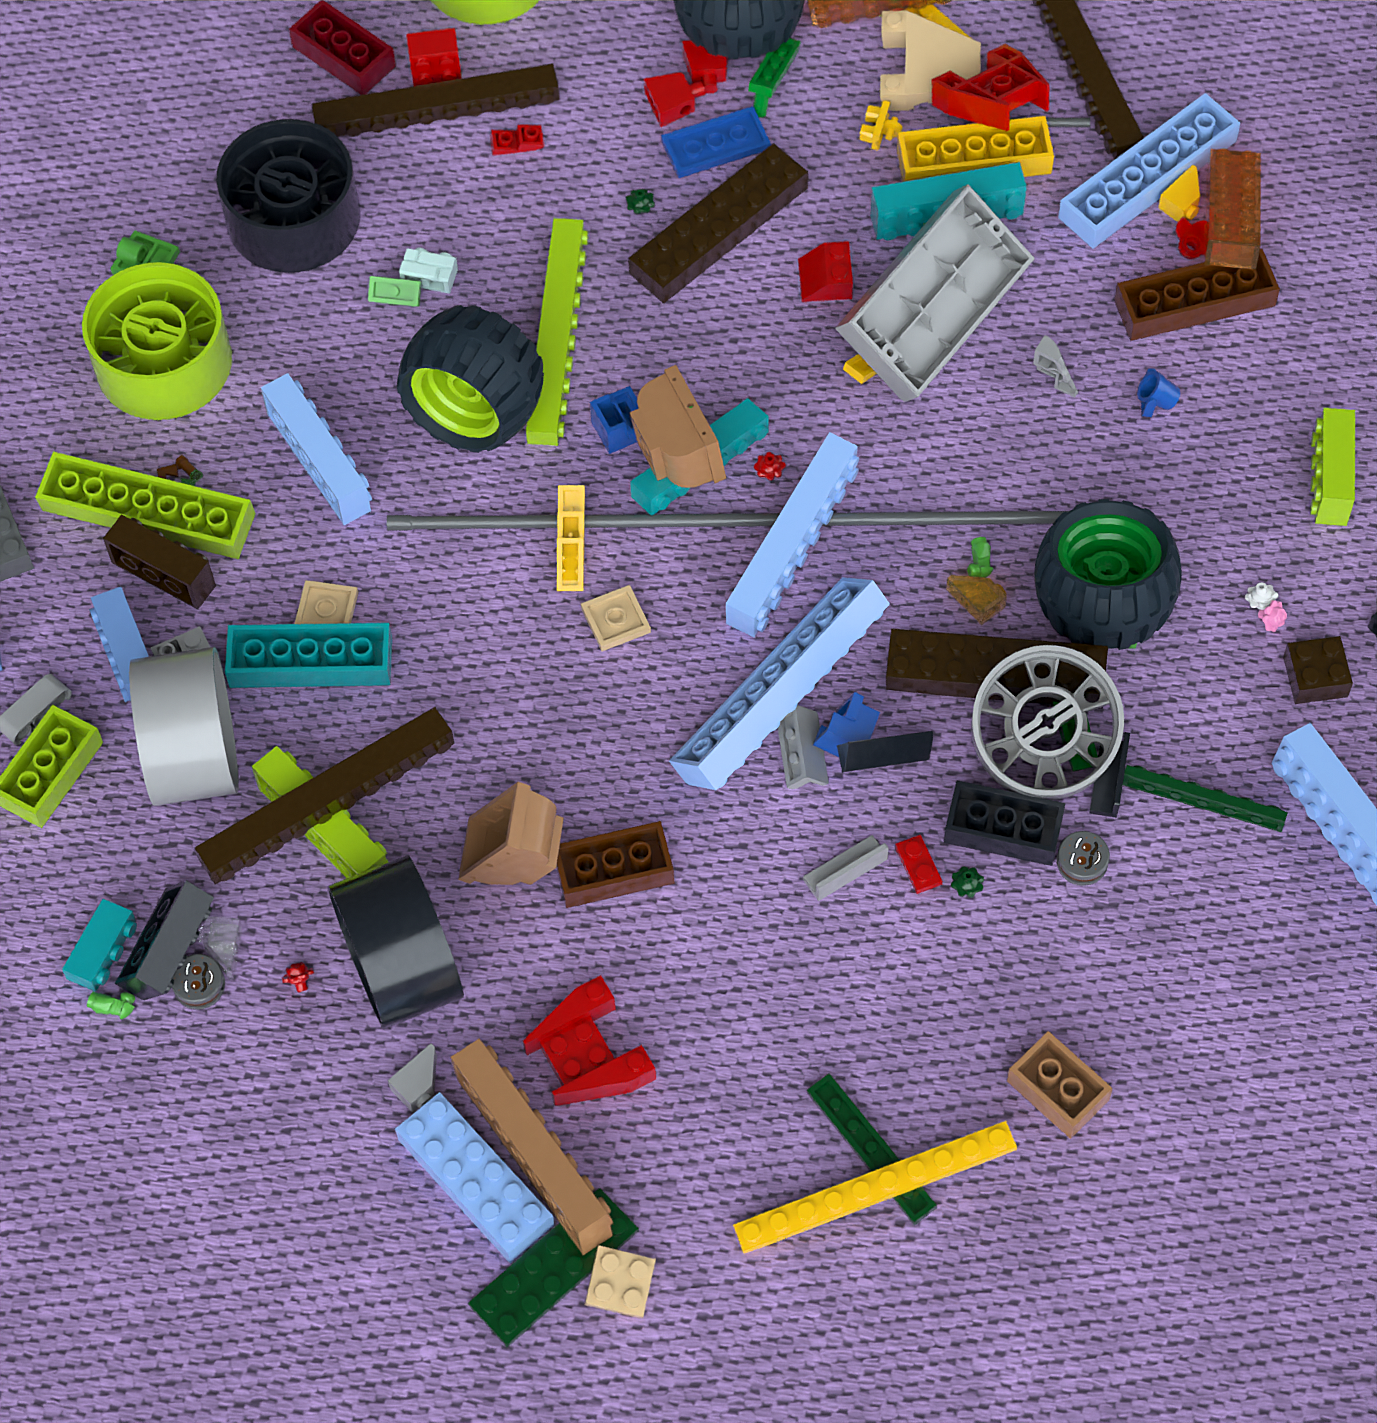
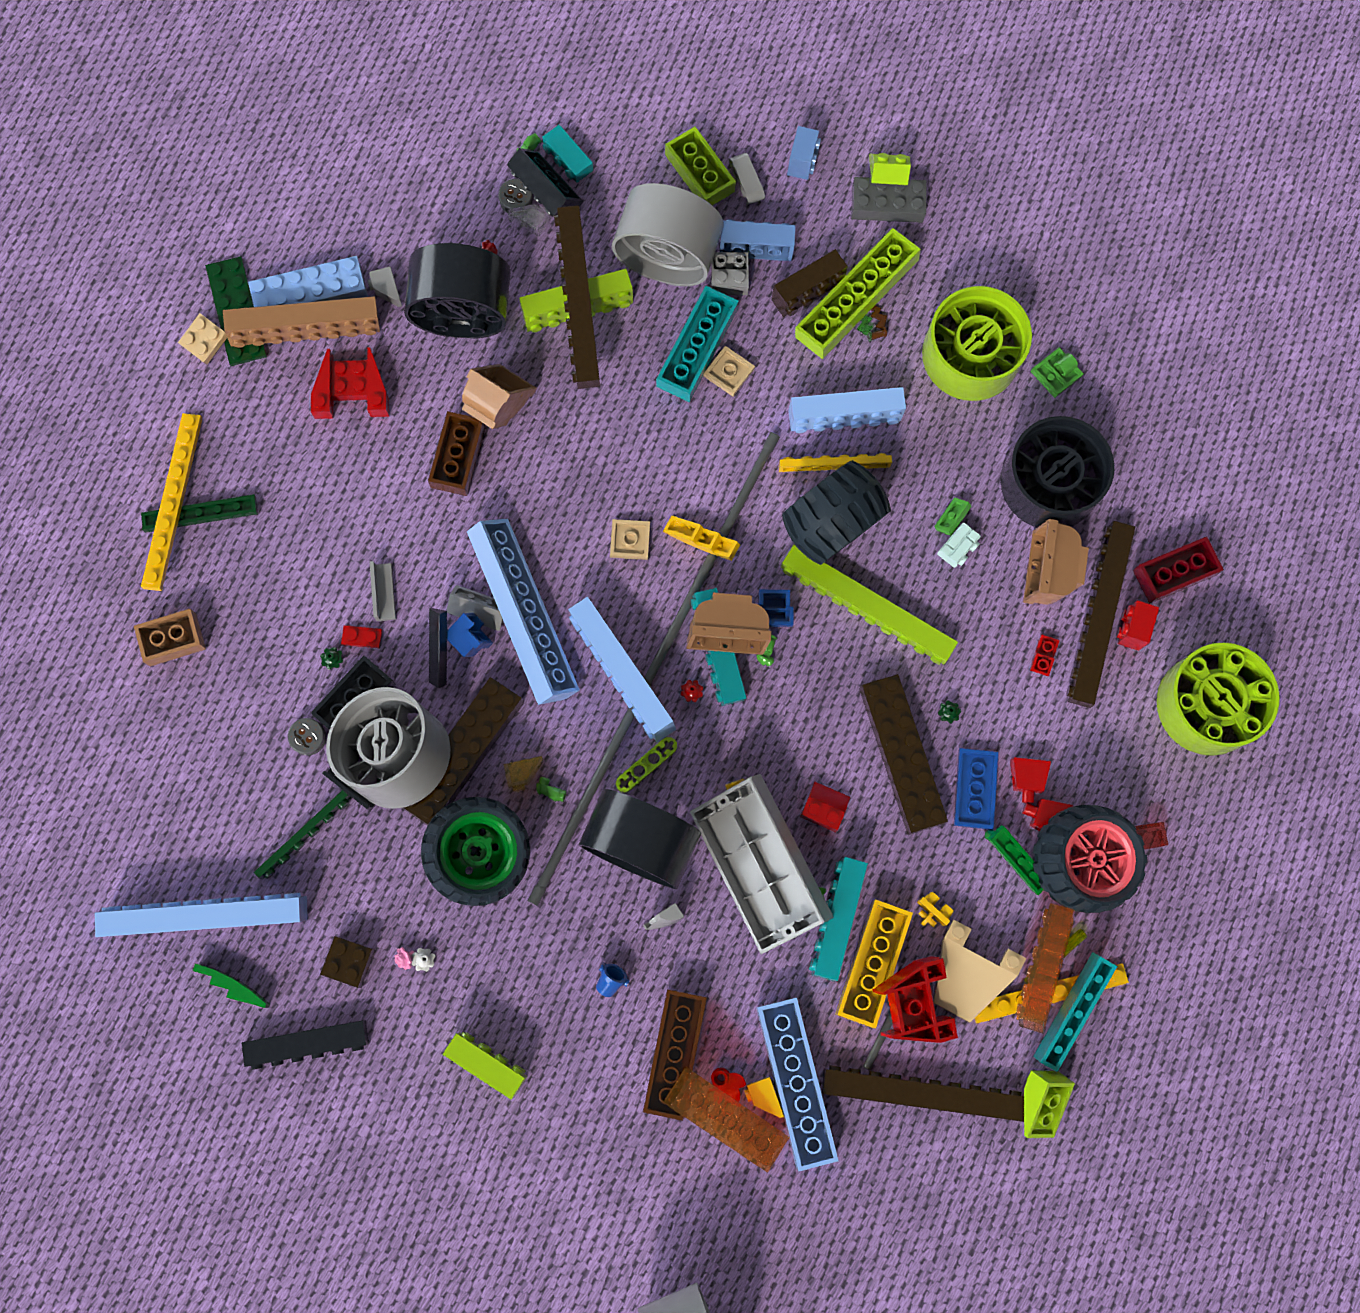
camera: 110 degrees right, 15 degrees up
(395, 447) = (825, 462): none -> yellow plate
(405, 158) = (1058, 563): none -> medium nougat container
(890, 470) = (644, 762): none -> lime beam
(989, 406) = (640, 838): none -> black wheel

